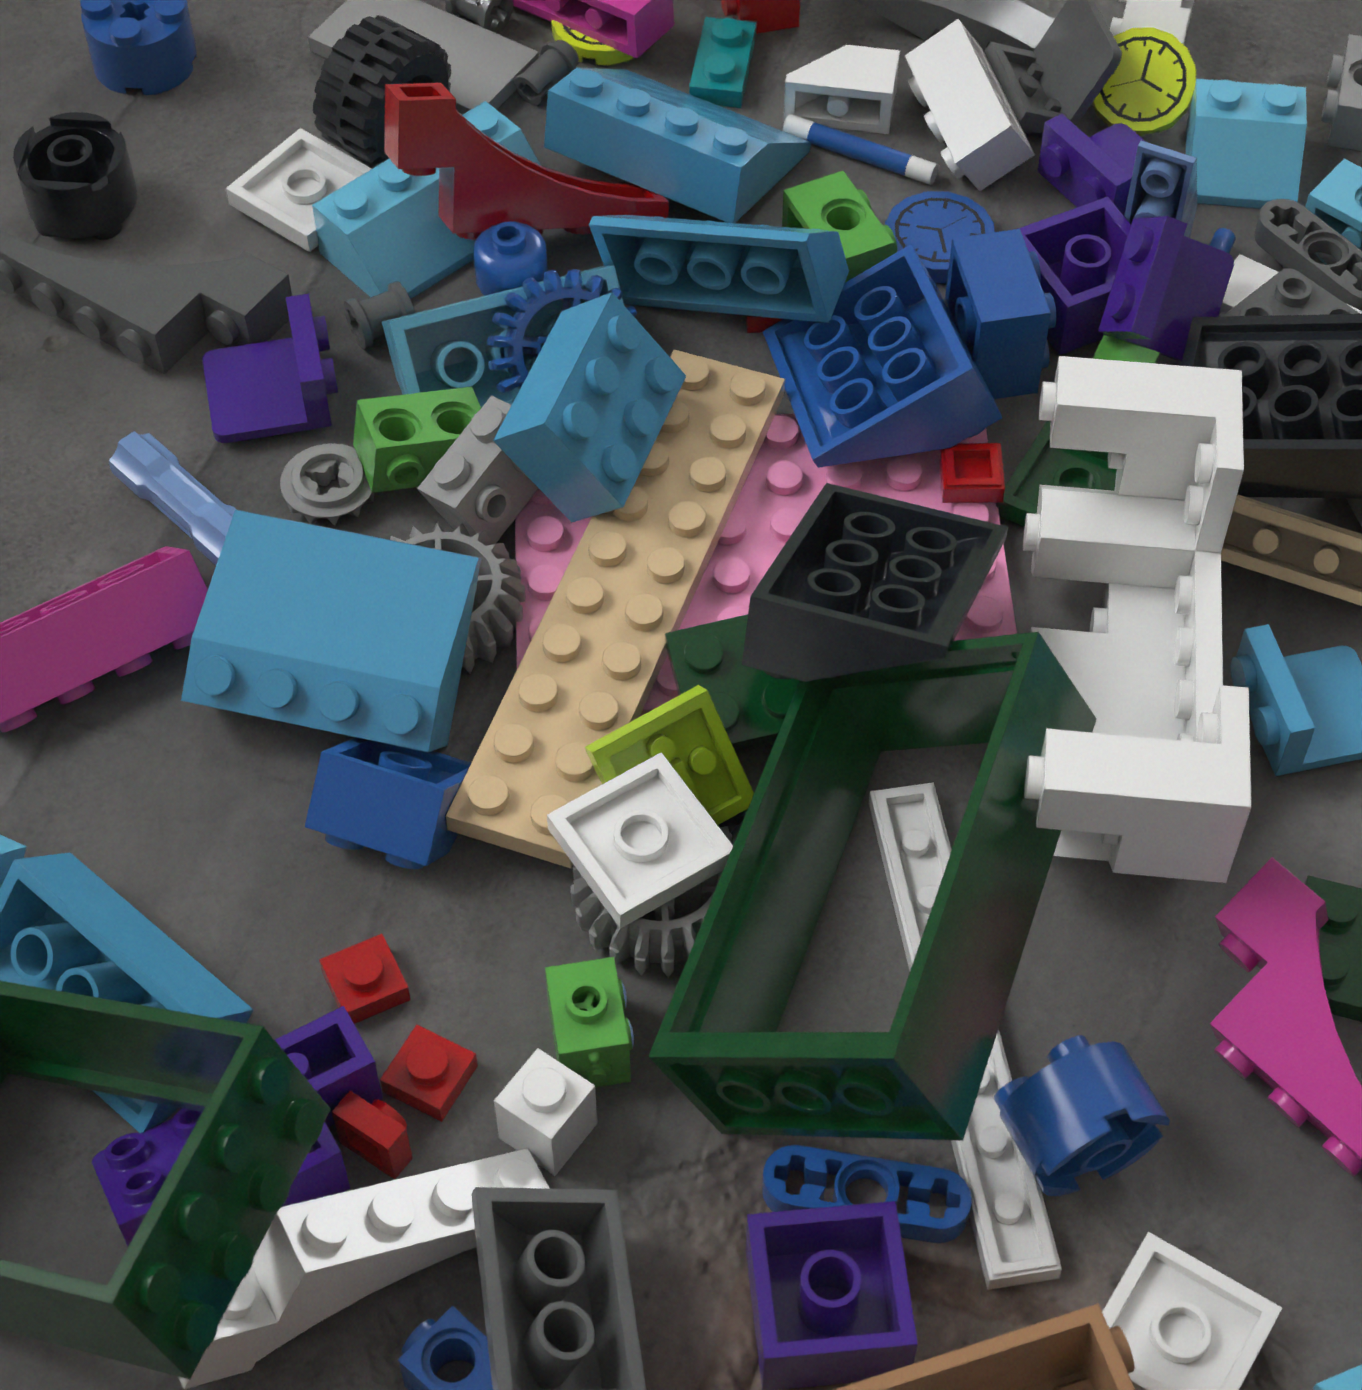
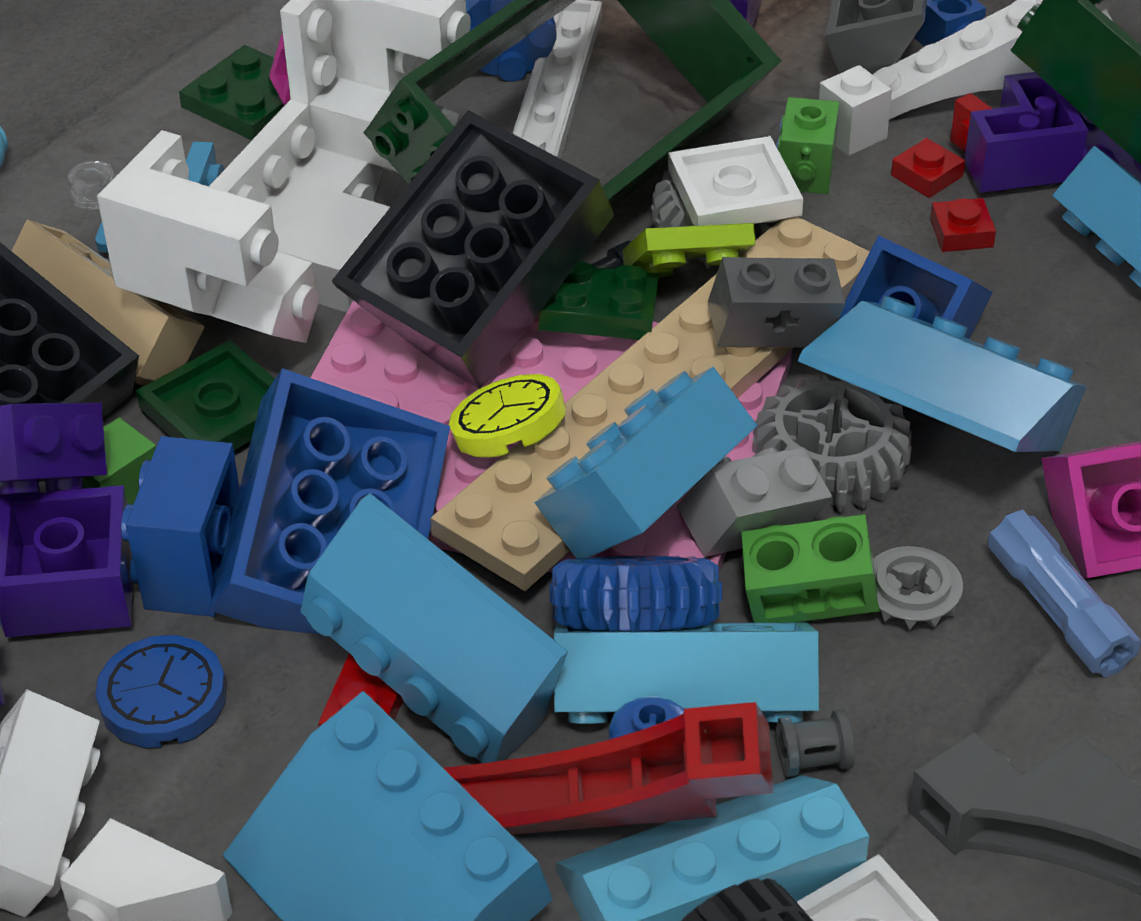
camera: 160 degrees left, 10 degrees down
(272, 383) = (951, 692): dark purple bracket -> none
(529, 633) = (774, 301): none -> dark grey brick
(761, 484) = (507, 412): none -> neon yellow tile
(837, 205) = (272, 695): bright green brick -> none
(862, 149) = (167, 822): blue bar -> none
(890, 1174) = (629, 47): blue beam -> none

